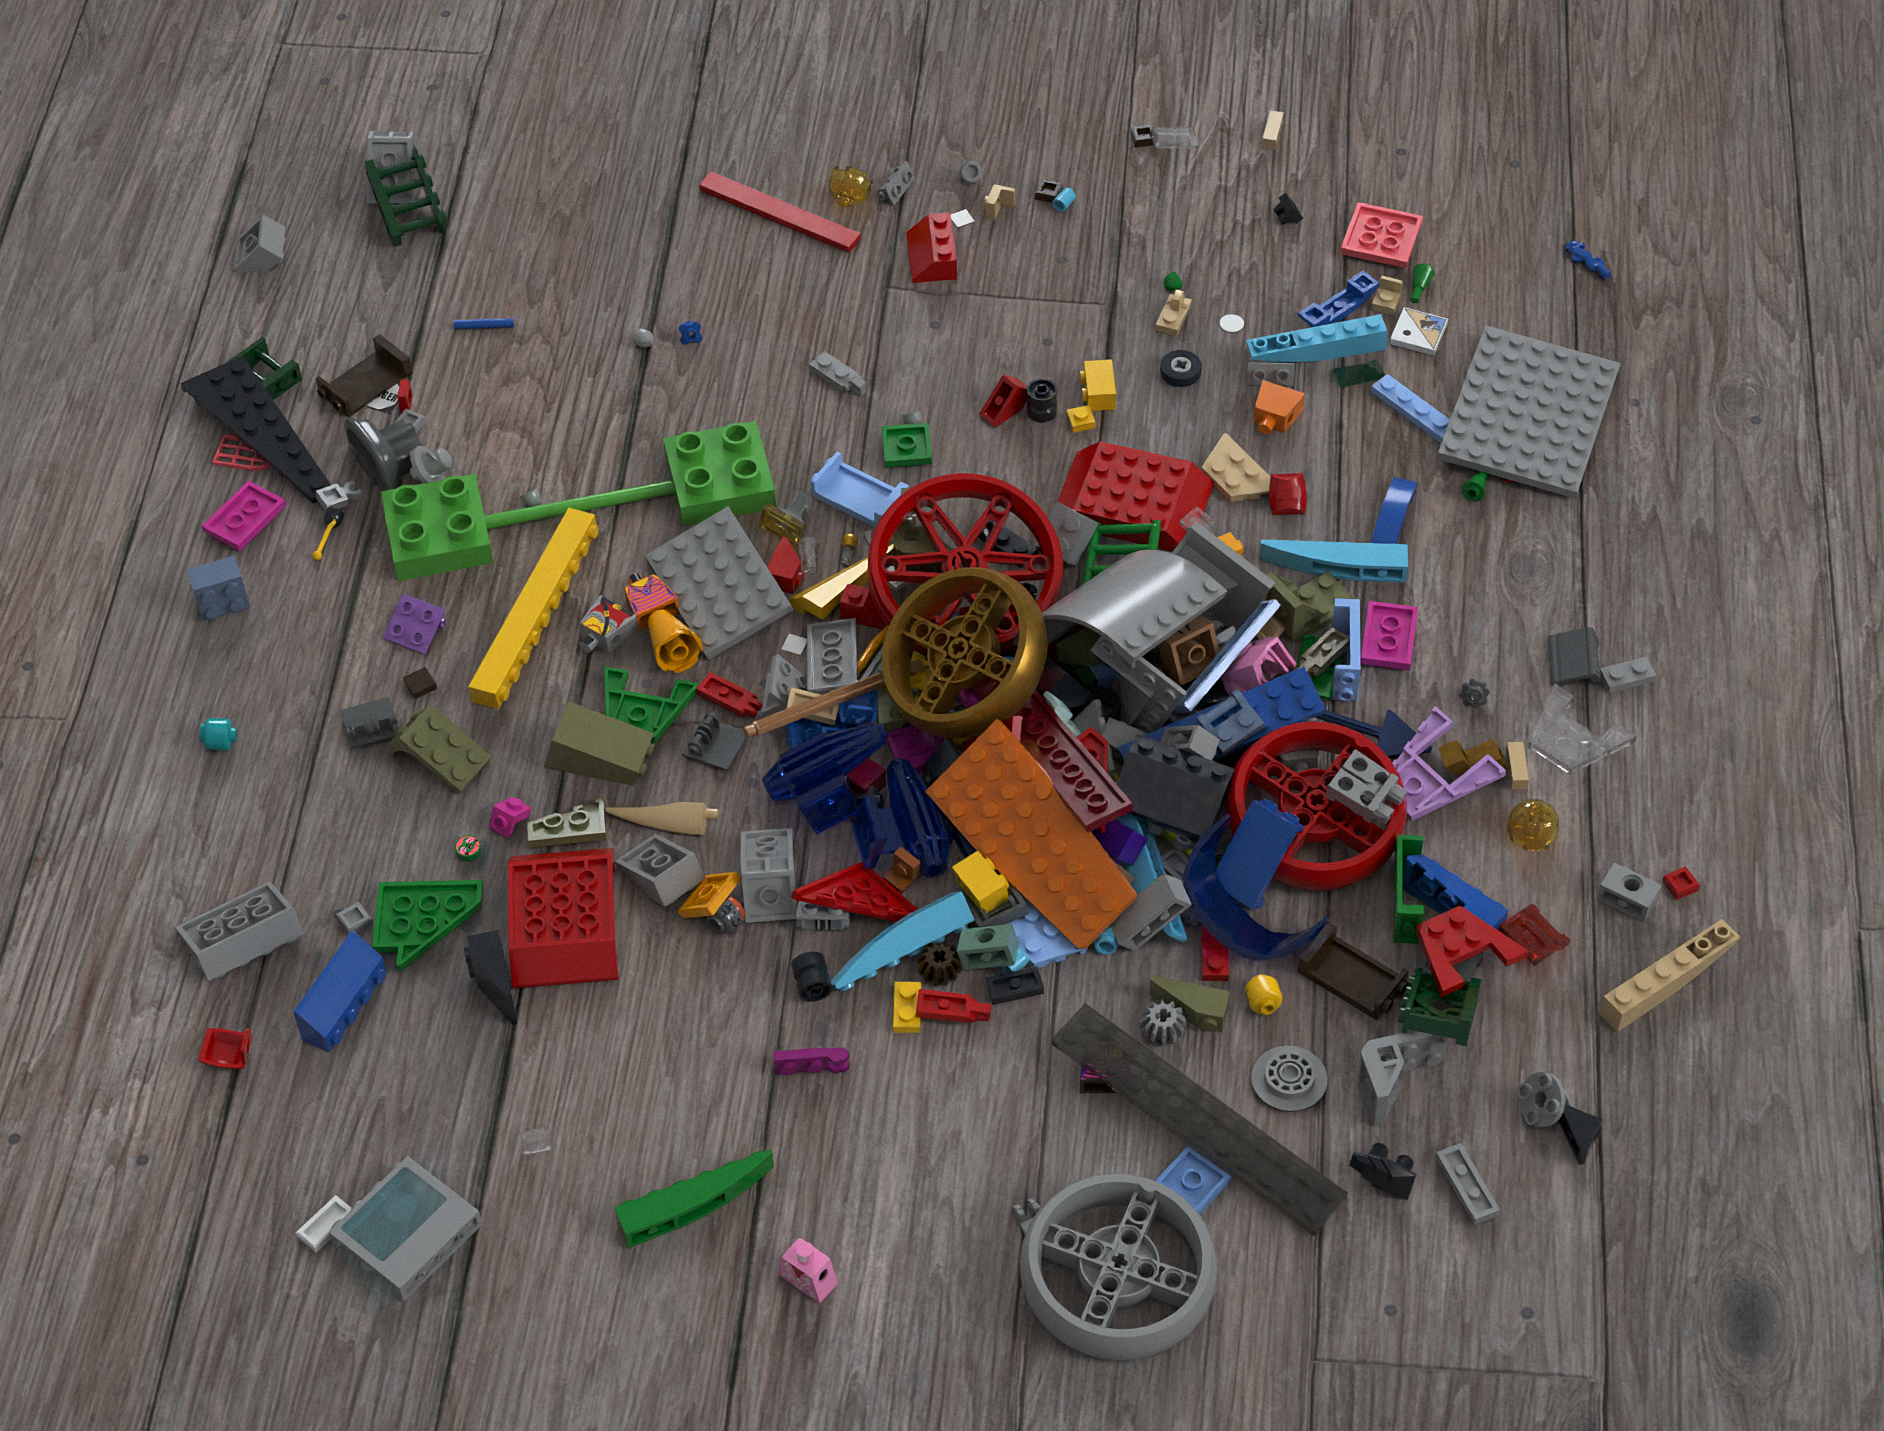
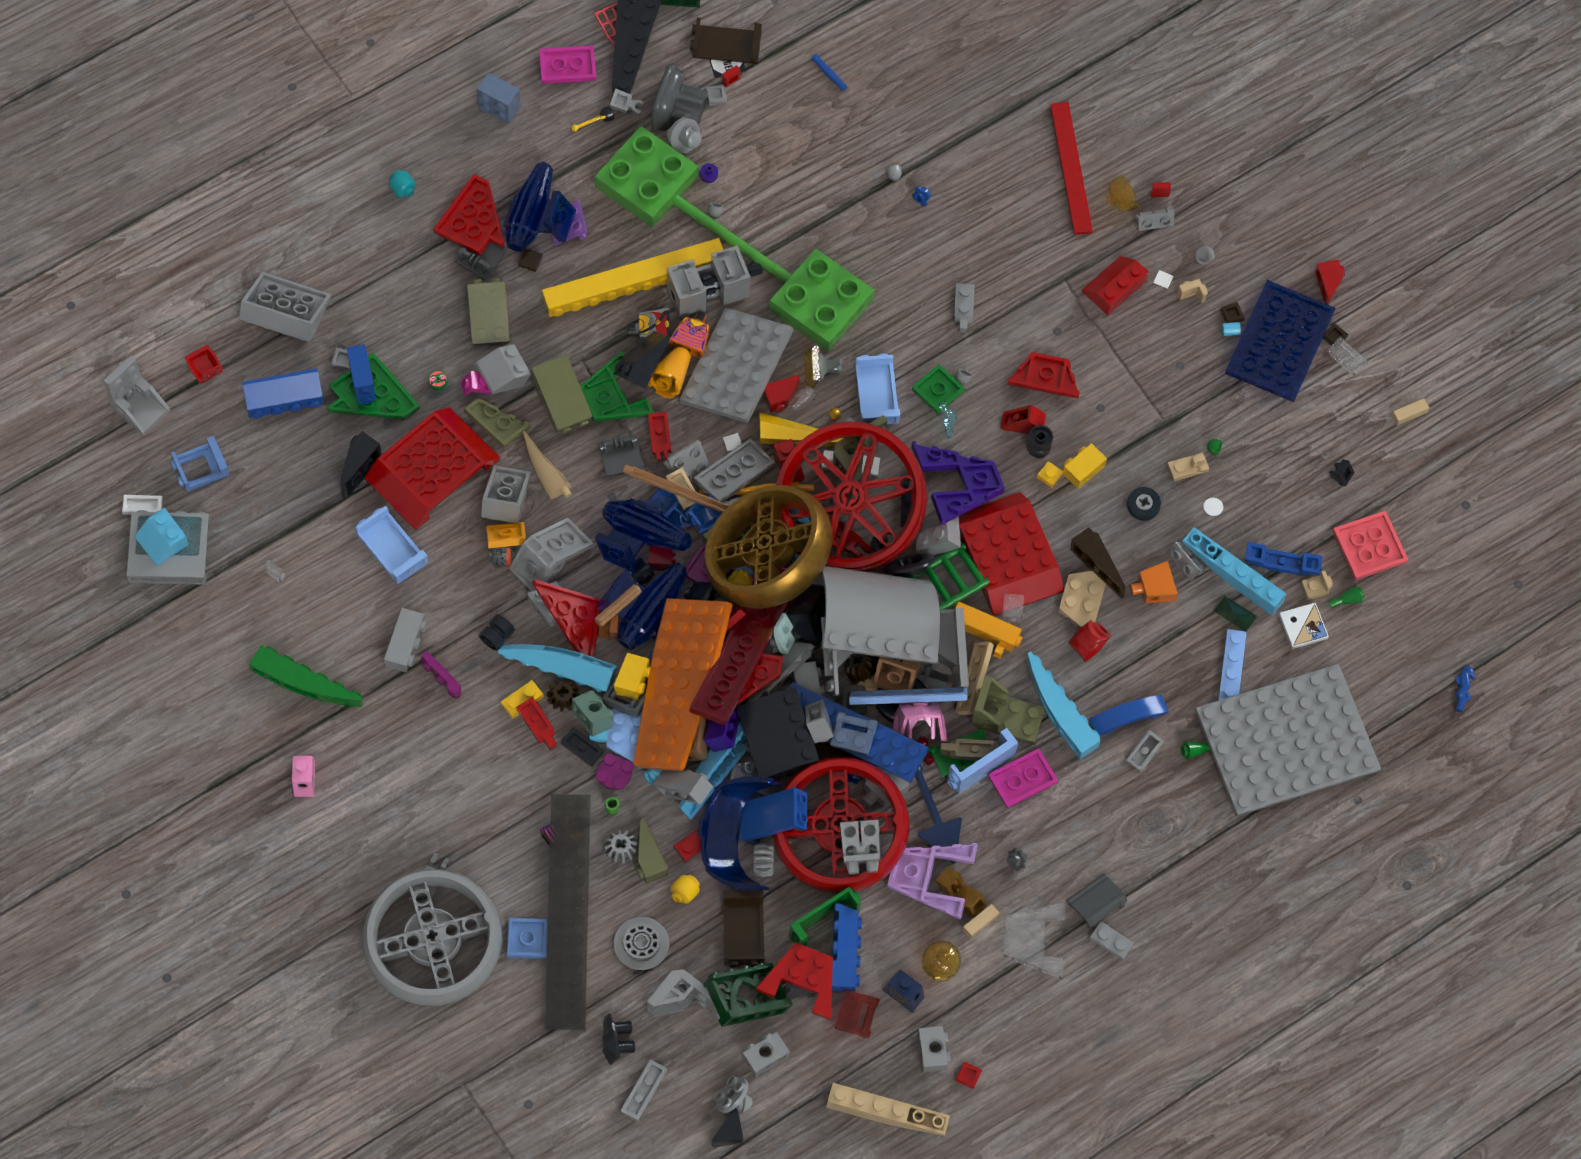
camera: 45 degrees right, 15 degrees up
(199, 1139) = (134, 397): none -> light grey bracket
(323, 698) = (472, 218): none -> red wing
(343, 1113) = (213, 457): none -> medium blue window
(376, 640) = (535, 212): none -> clear blue piece
(391, 1216) = (161, 537): none -> medium azure slope
(398, 899) = (361, 374): none -> blue window
(486, 479) = (709, 173): none -> dark purple tile
(521, 775) = (503, 369): none -> light grey slope
(614, 1012) = (390, 545): none -> light blue panel
(619, 528) = (724, 277): none -> light grey piece
(639, 647) = (642, 360): none -> black slope
(738, 1069) = (405, 640): none -> light grey brick
(872, 160) = (1160, 189): none -> red tile
(894, 843) = (618, 605): none -> medium nougat axle
(946, 456) = (949, 418): none -> clear light blue animal
(975, 356) = (1046, 375): none -> red wing
(1034, 467) = (978, 477): none -> dark purple wing
(1070, 975) = (614, 772): none -> magenta piece
(1079, 572) = (909, 565): none -> black wheel
(1084, 103) = (1329, 278): none -> red slope
(1108, 1001) = (612, 801): none -> bright green hinge
(1111, 173) = (1280, 341): none -> clear blue plate
(1210, 431) = (1093, 553): none -> dark brown slope
(1293, 901) = (763, 860): none -> light grey gear
(1443, 523) = (1145, 750): none -> light grey slope
(1515, 1057) = (760, 1064): none -> light grey brick
(1542, 872) = (904, 990): none -> dark blue torso

